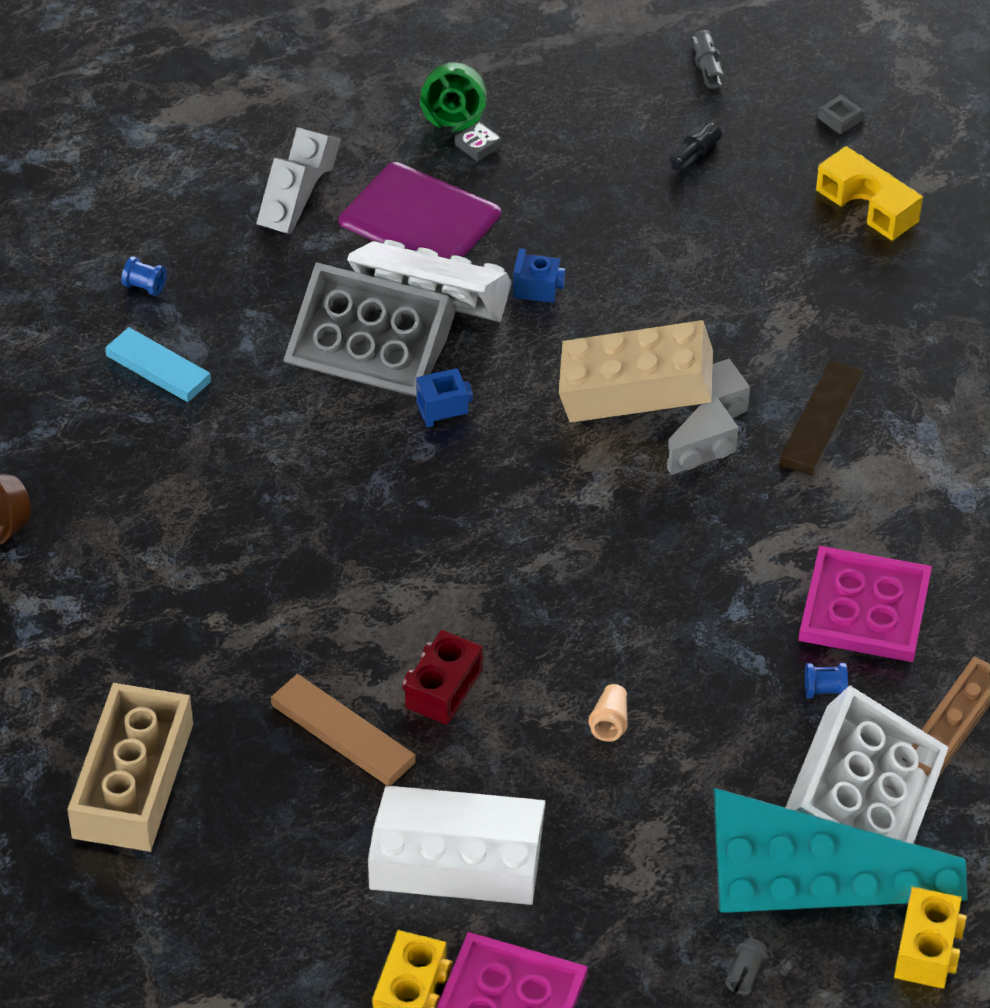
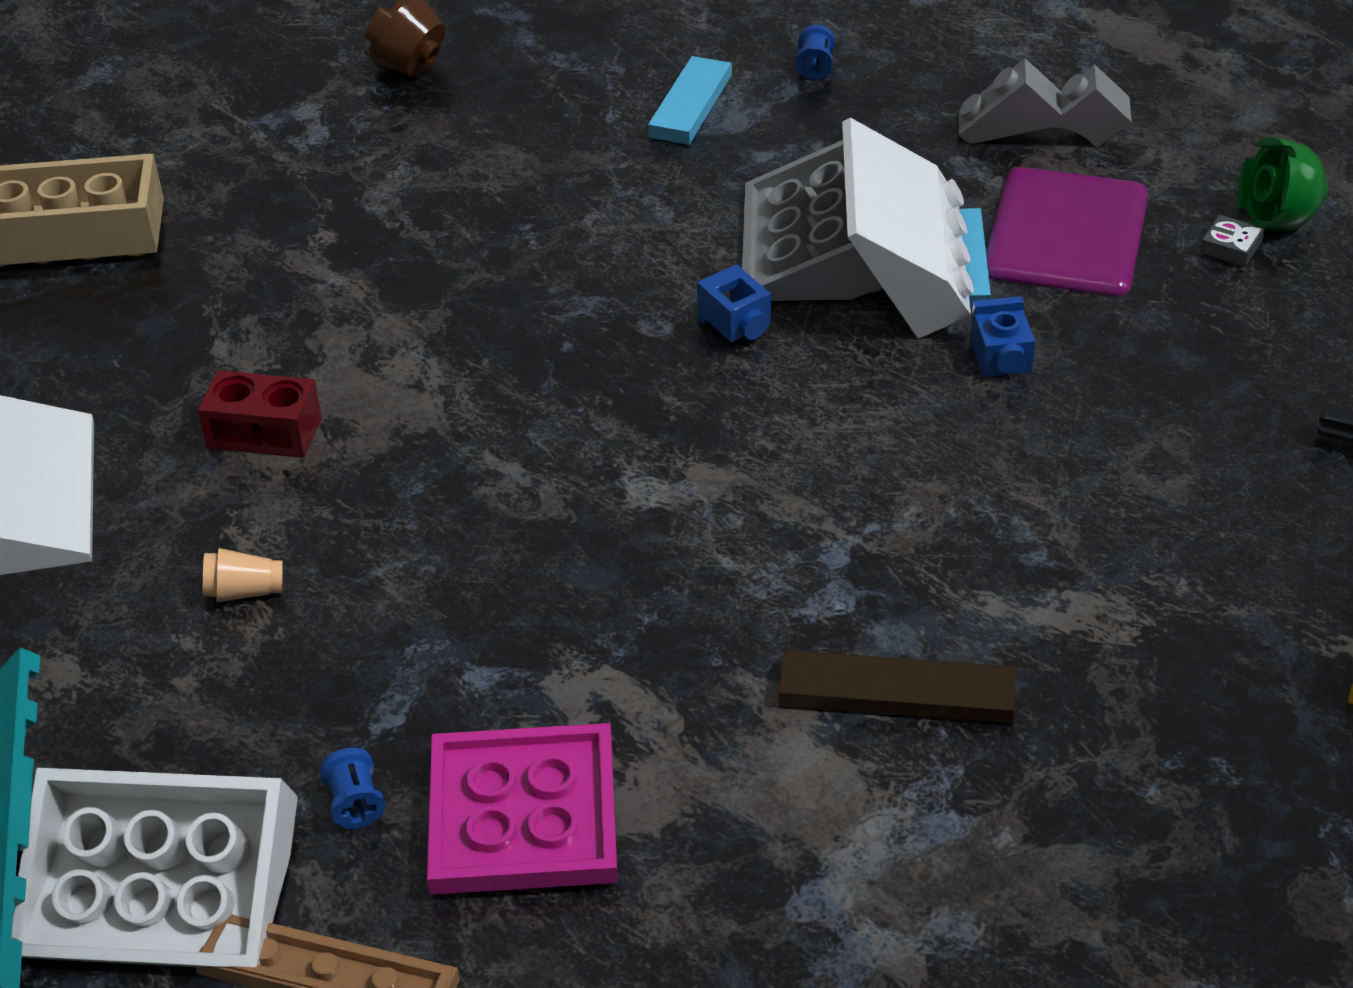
camera: 75 degrees right, 5 degrees down
(343, 730) = (169, 363): medium nougat tile -> none
(636, 371) = (845, 448): tan brick -> none
(710, 429) = (801, 560): light grey arch -> none

